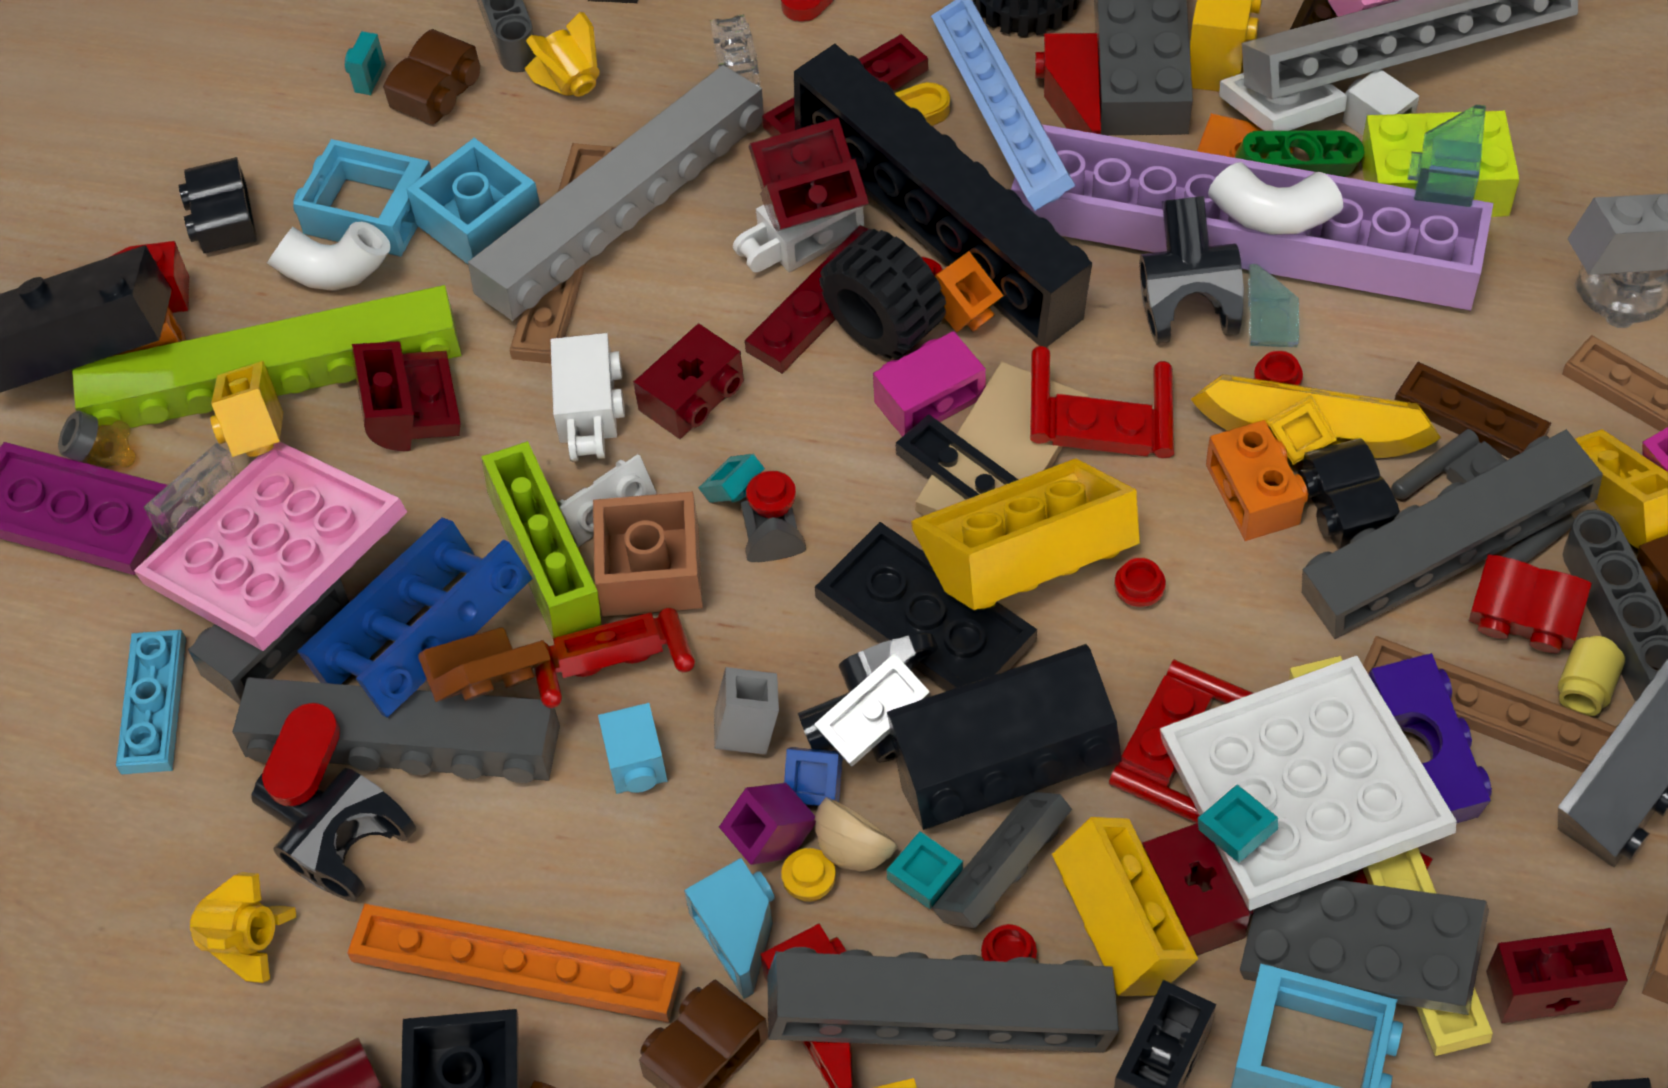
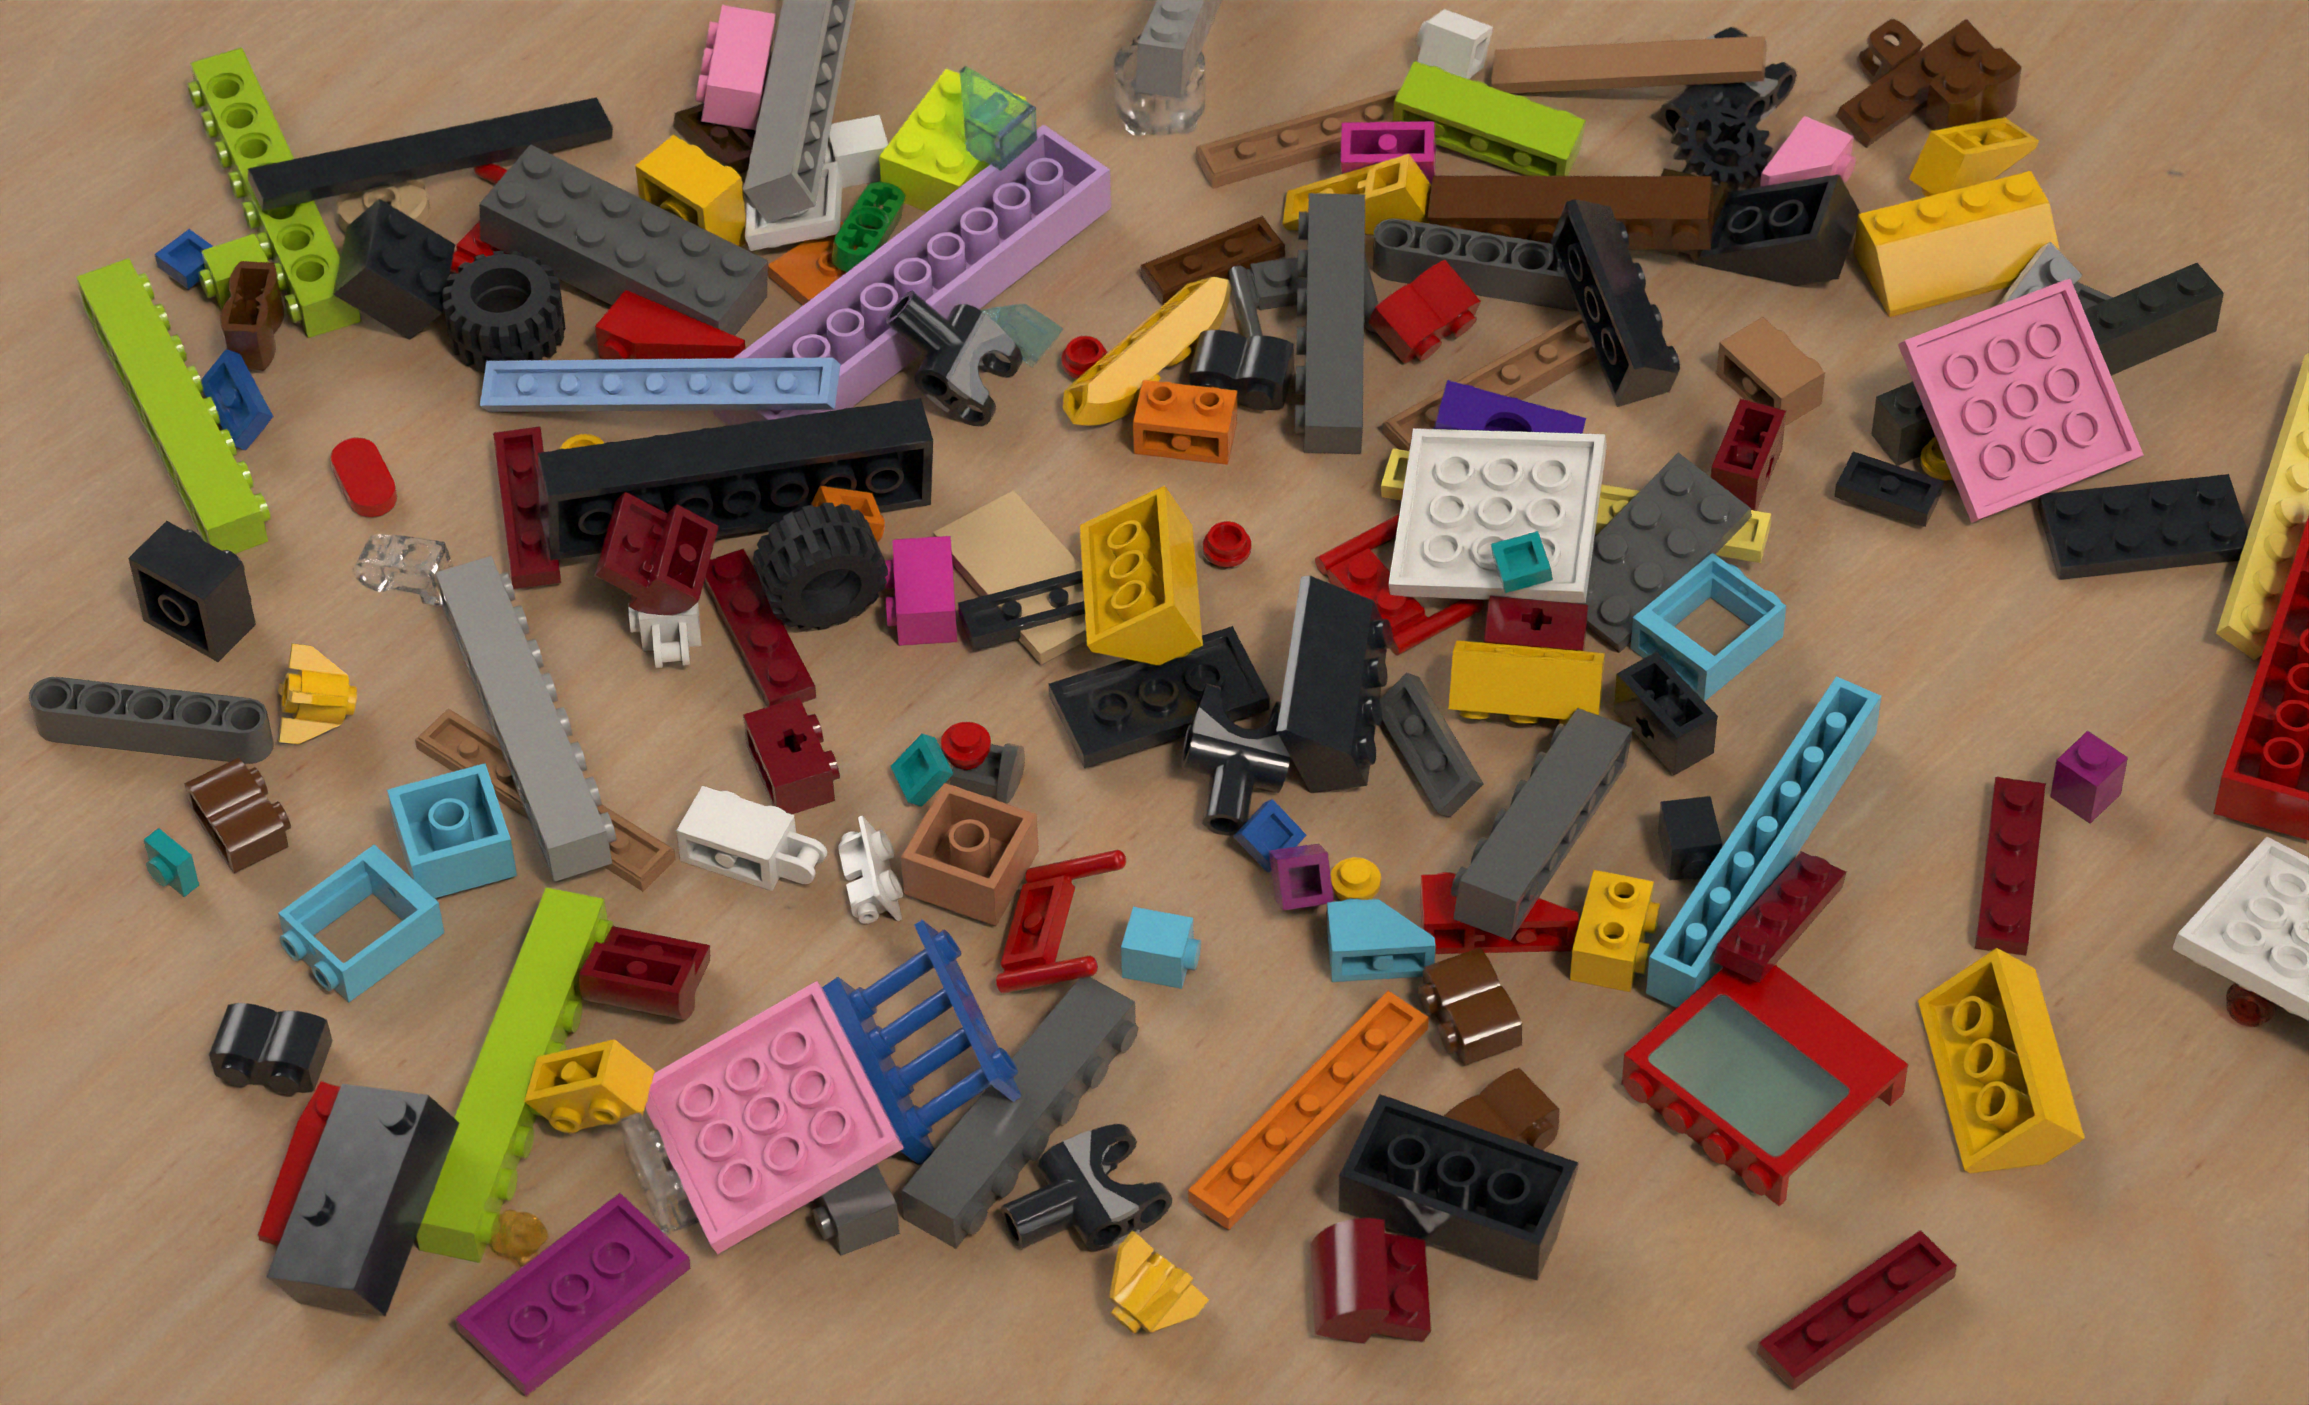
camera: 65 degrees left, 5 degrees down
(78, 435) = (506, 1245): dark grey tile -> none
(151, 702) = (871, 1309): medium azure tile -> none
(301, 754) = (1020, 1169): red tile -> none
(333, 265) = (430, 980): white cylinder -> none
(477, 663) = (1027, 1006): dark orange bracket -> none
(541, 540) = (878, 922): lime brick -> none
(746, 711) = (1182, 848): light grey brick -> none
(850, 839) = (1349, 828): tan piece -> none
(861, 716) = (1256, 749): white plate -> none
(924, 870) = (1404, 800): teal plate -> none
(1008, 943) = (1504, 776): red plate -> none
(1102, 422) = (1050, 495): red plate -> none
(1272, 208) = (953, 256): white cylinder -> none
(1302, 429) = (1167, 360): yellow tile -> none
(1590, 675) = (1510, 312): light yellow brick -> none

